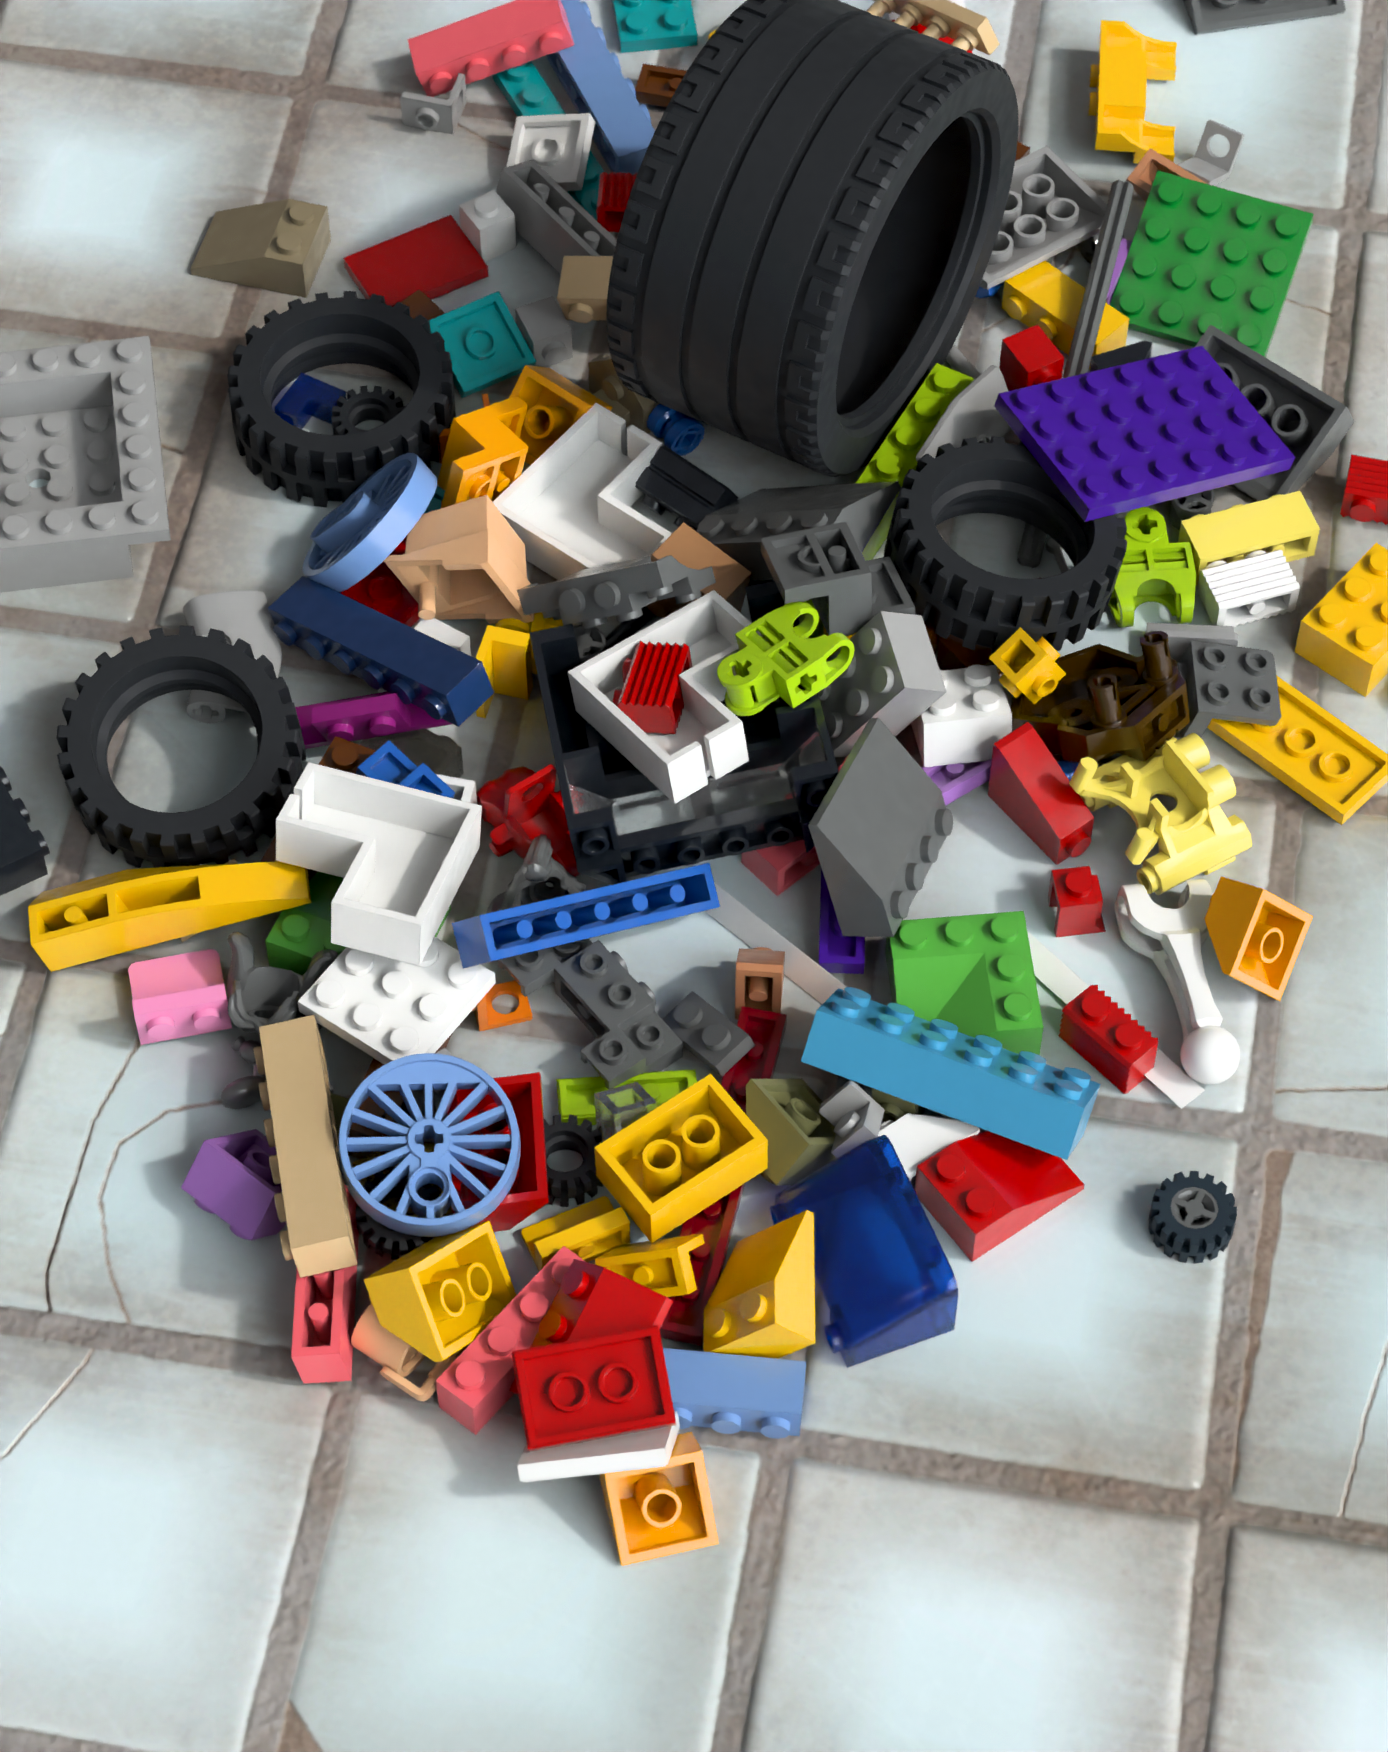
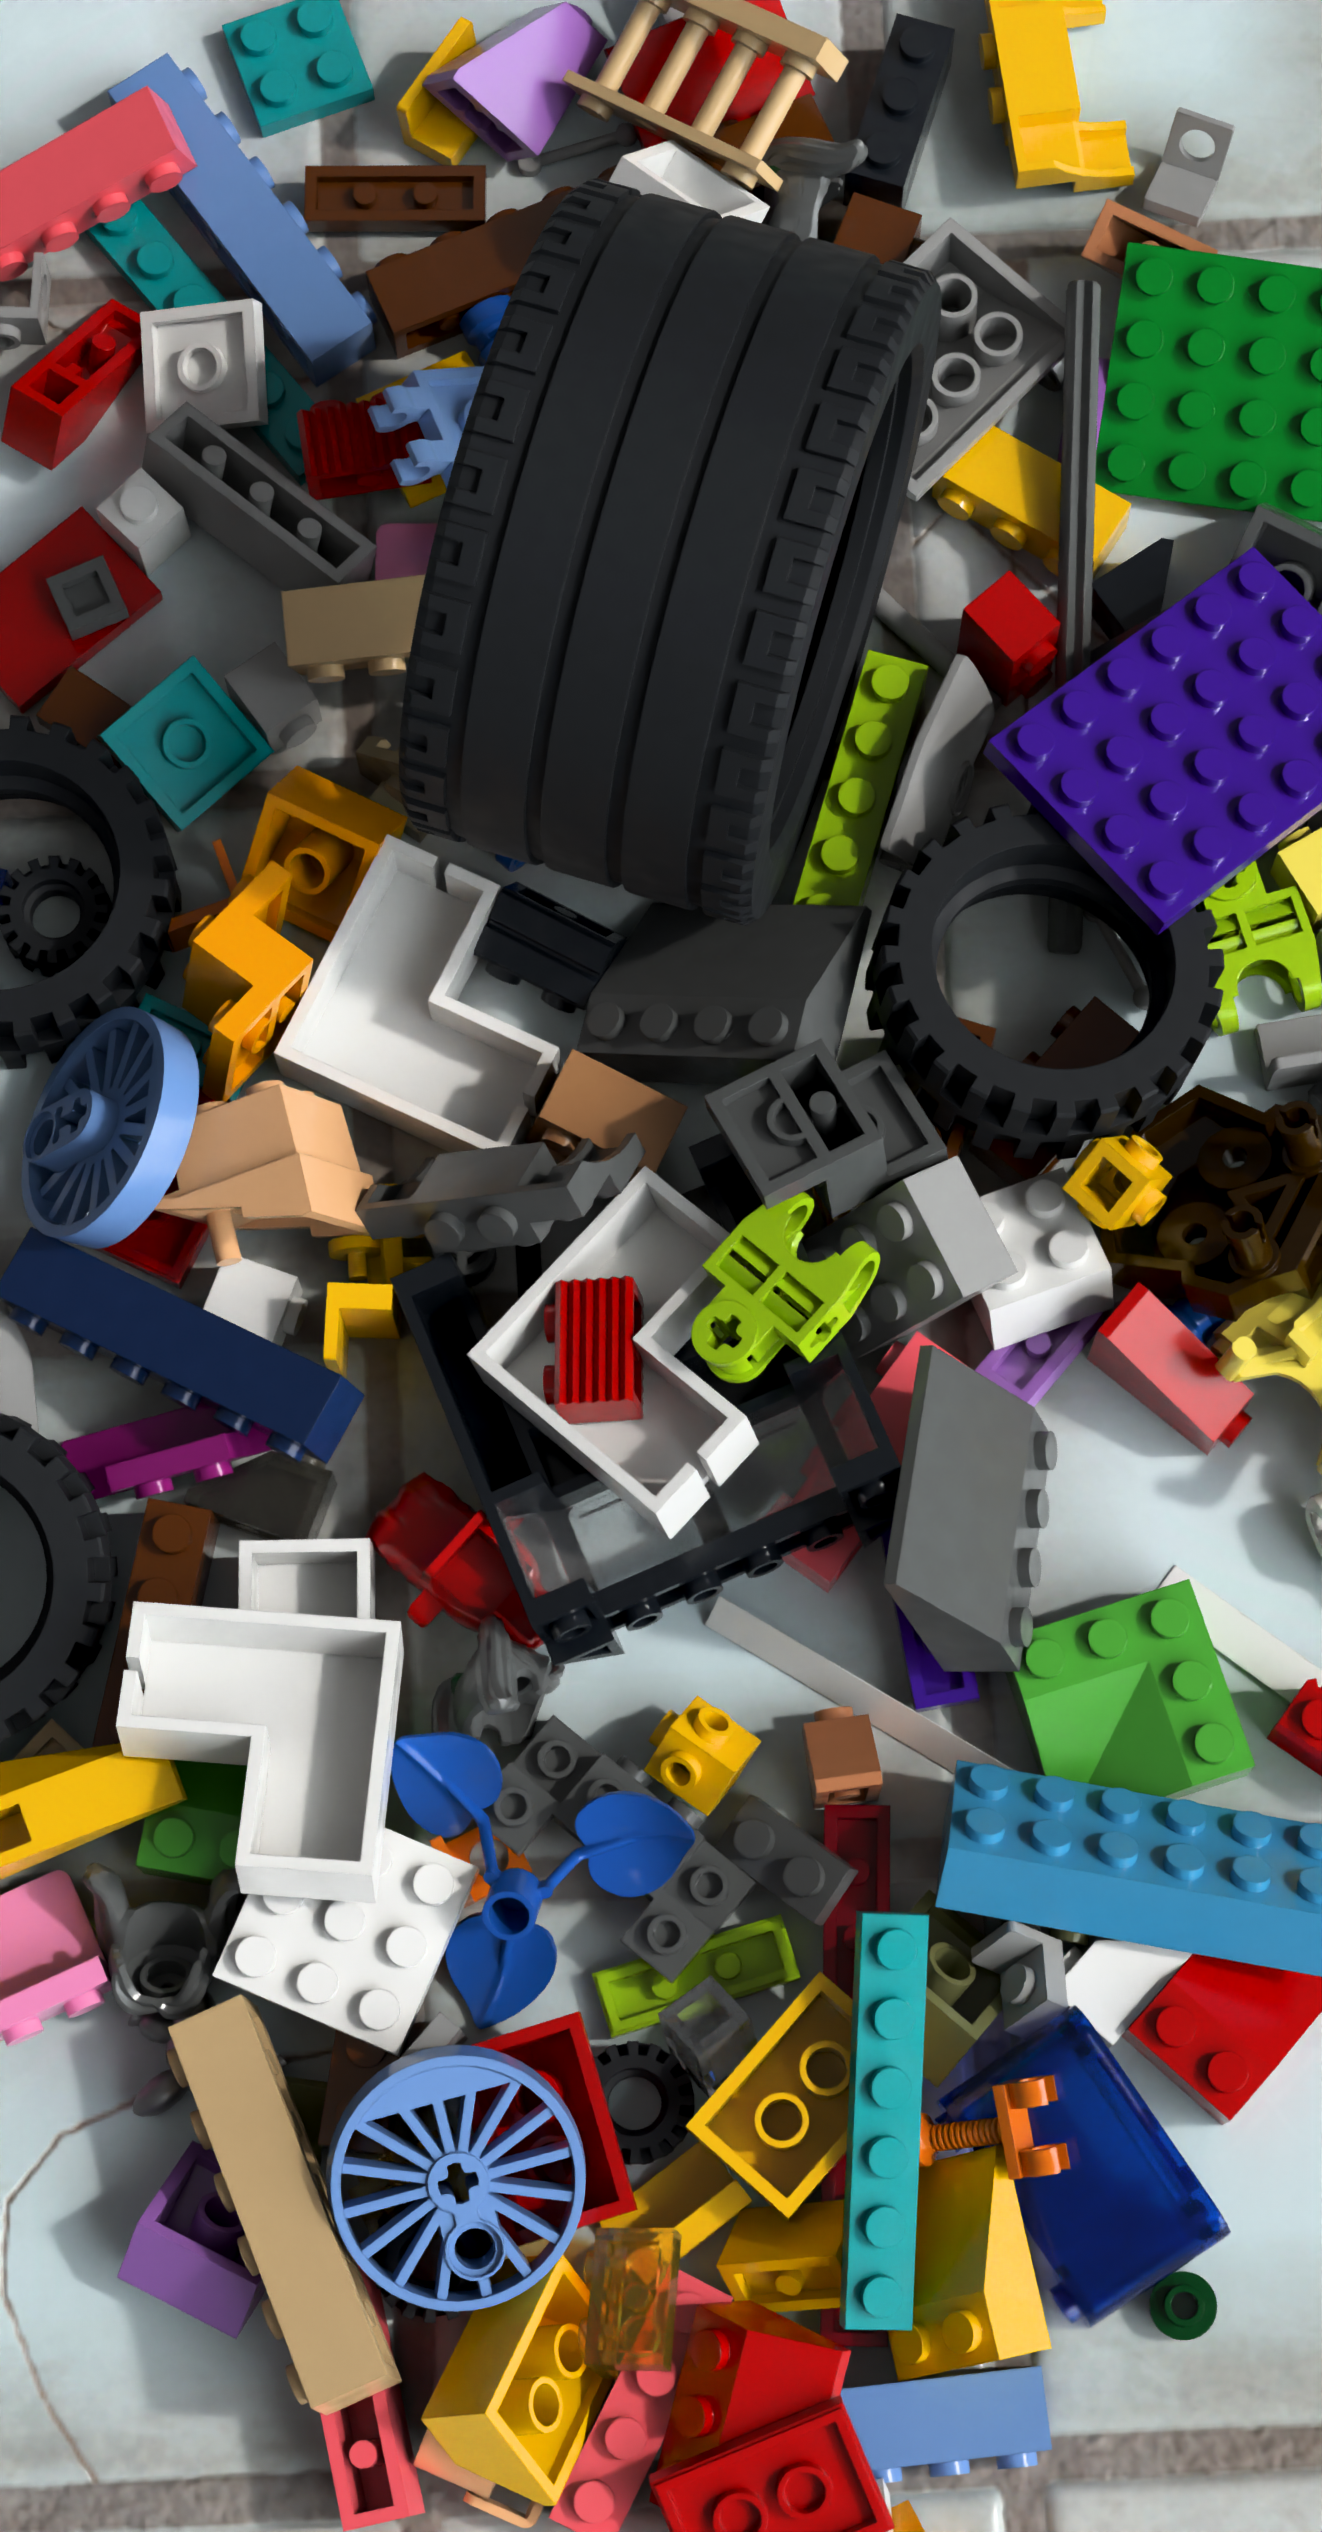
camera: 10 degrees left, 20 degrees up
(395, 767) = (271, 1570): blue slope -> none
(440, 256) = (87, 598): none -> dark grey plate
(461, 151) = (73, 386): none -> red slope
(528, 1254) = (631, 2300): none -> clear yellow bracket
(585, 915) = (582, 1744): blue brick -> none
(601, 987) = (500, 1953): none -> blue plant
(665, 959) = (700, 1754): none -> yellow brick
(731, 1167) = (884, 2121): none -> teal plate
(753, 1210) = (1009, 2128): none -> orange bar
(912, 1371) = (1167, 2321): none -> dark green plate
(1041, 87) = (901, 110): none -> black brick
(1077, 901) = (1254, 1527): red window -> none

